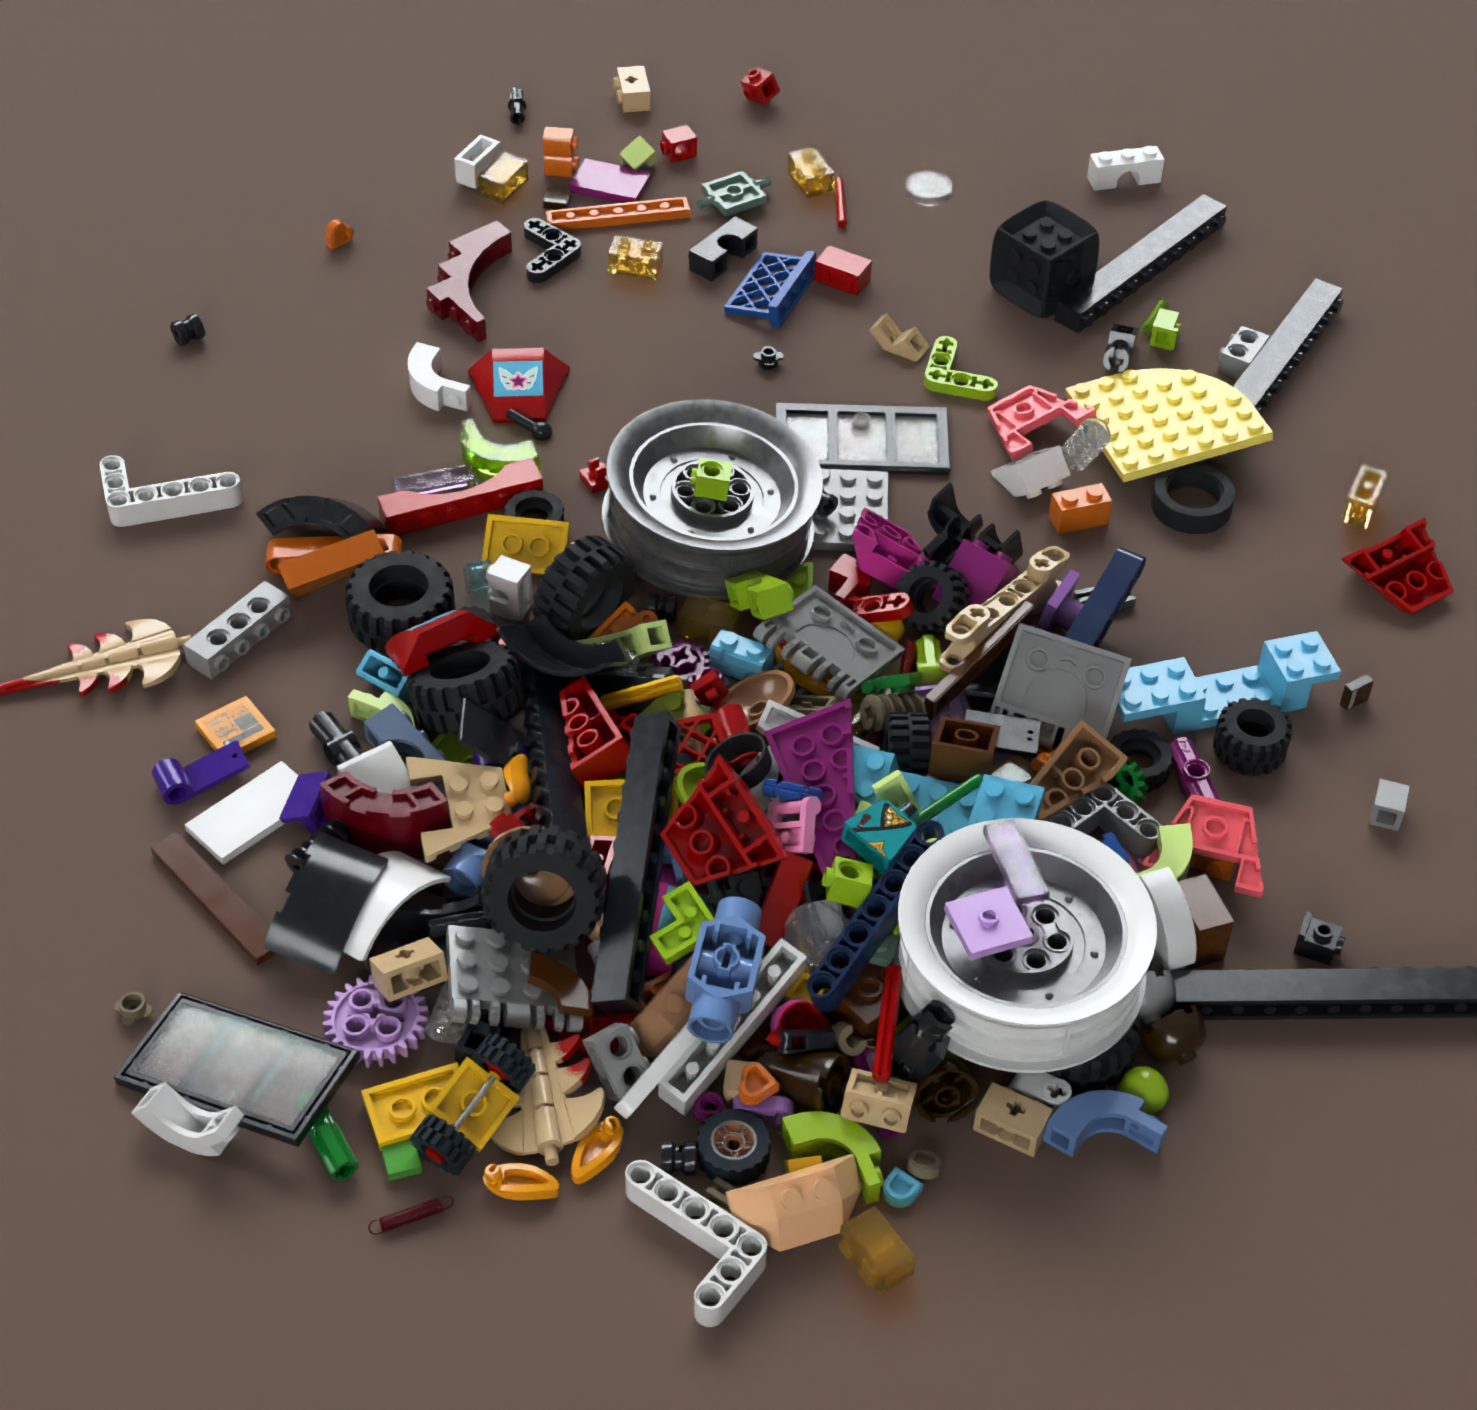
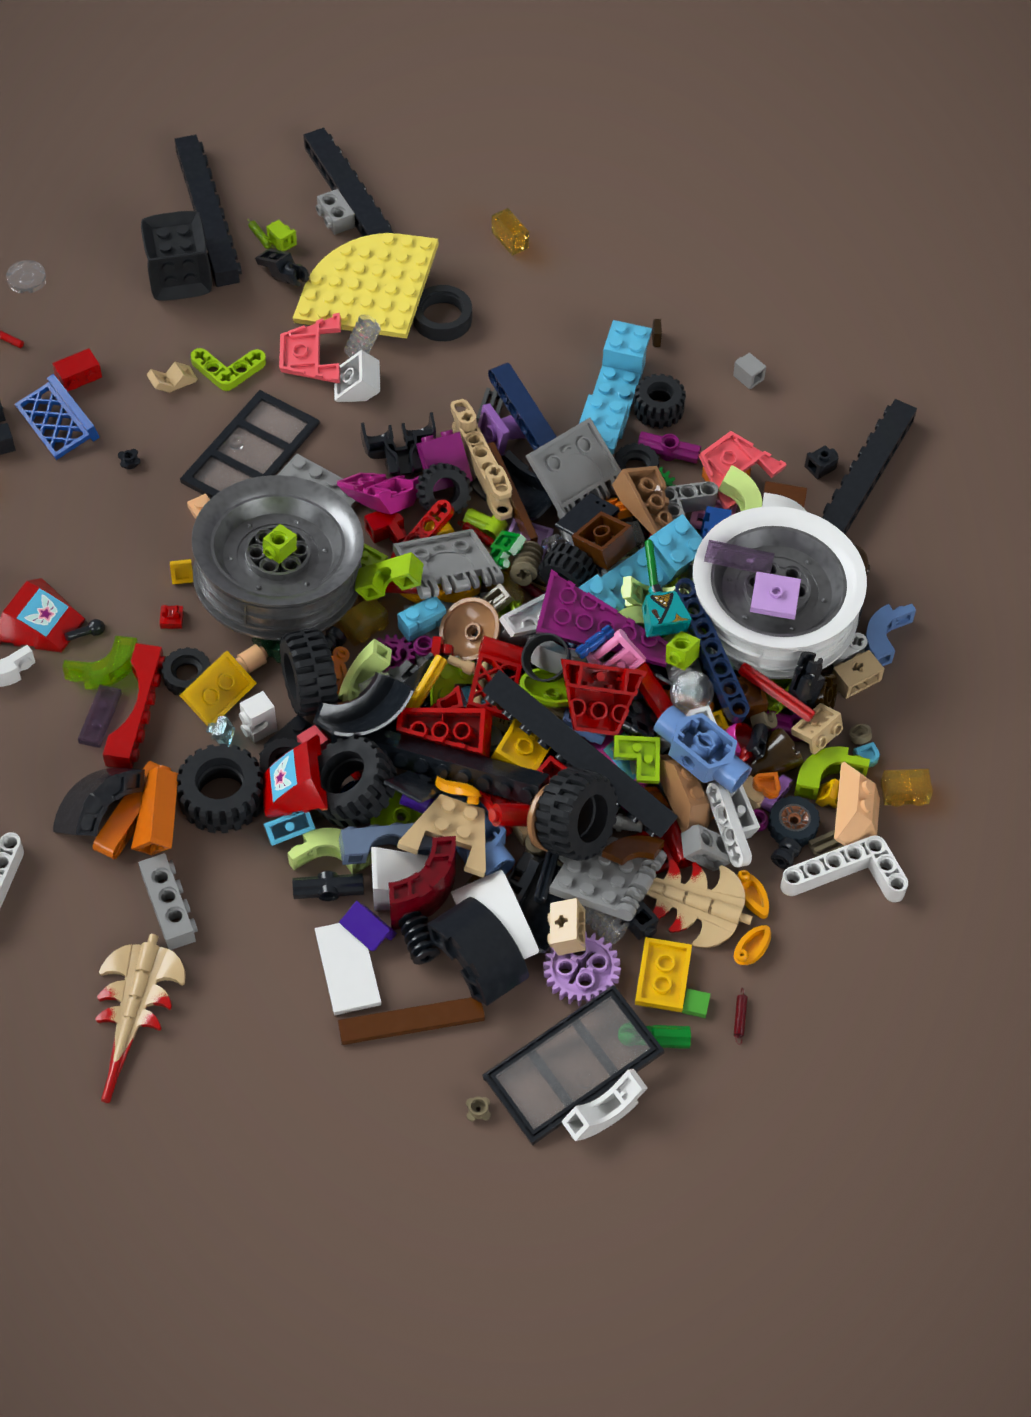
camera: 60 degrees left, 10 degrees up
(182, 783) = (292, 982): dark purple door -> none
(236, 722) = (260, 945): light orange tile -> none
(473, 1104) = (692, 940): plate -> none
(1080, 508) = (411, 373): orange brick -> none
(1107, 167) = (109, 153): white arch -> none
(1147, 1085) = (873, 601): lime hair -> none
(1404, 569) = (579, 252): red wedge -> none

